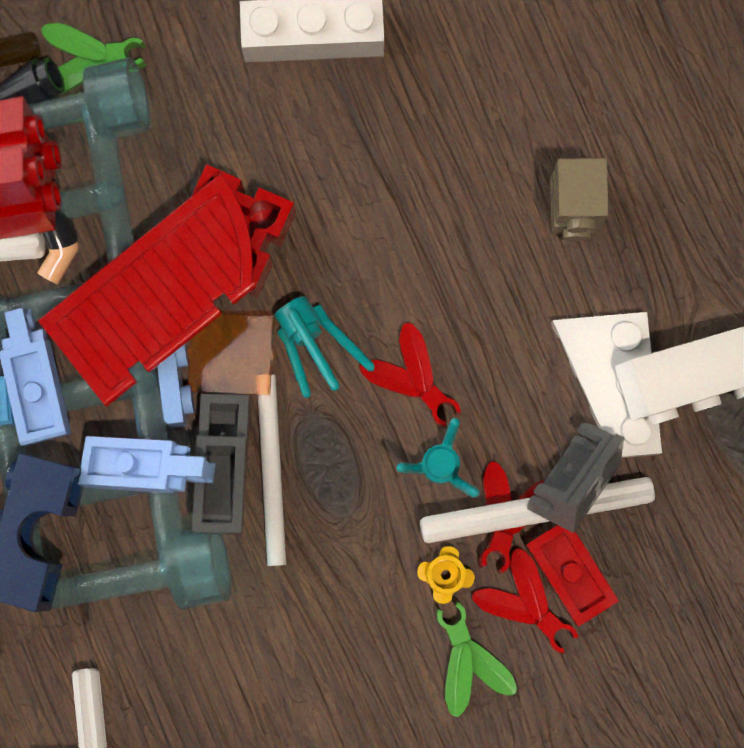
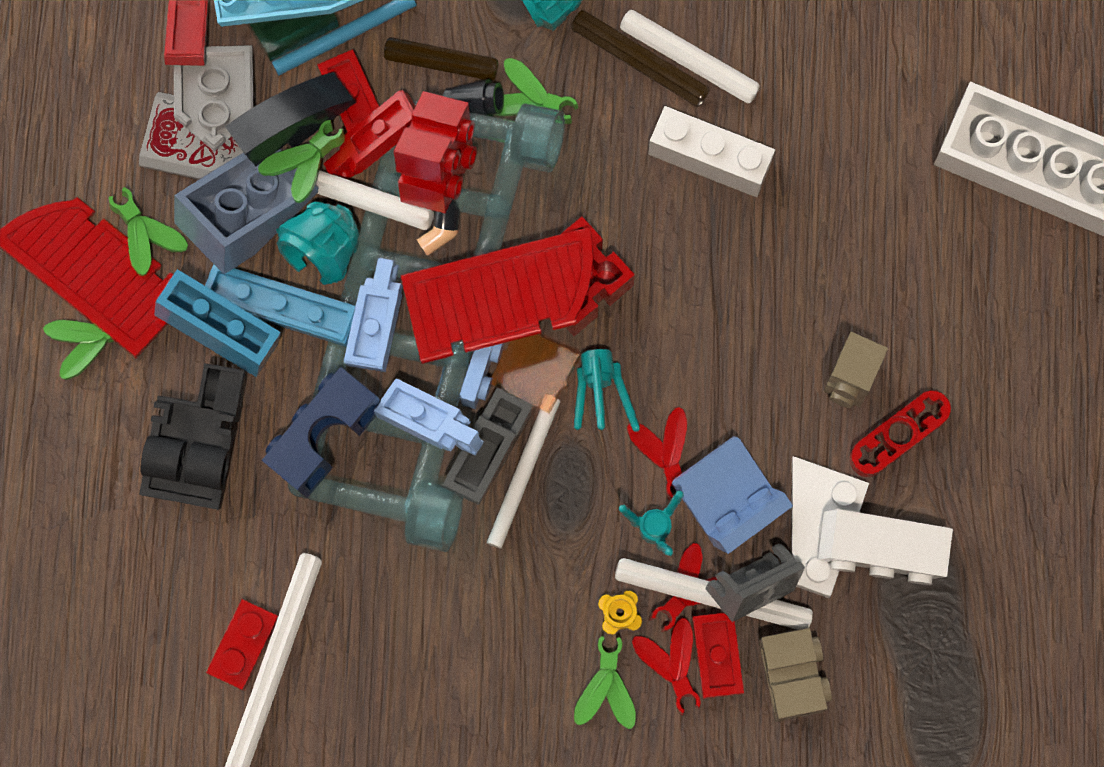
camera: 25 degrees right, 5 degrees down
(508, 395) = (730, 495): none -> medium blue bracket
(658, 207) = (916, 407): none -> red beam
(663, 557) = (793, 674): none -> dark tan brick

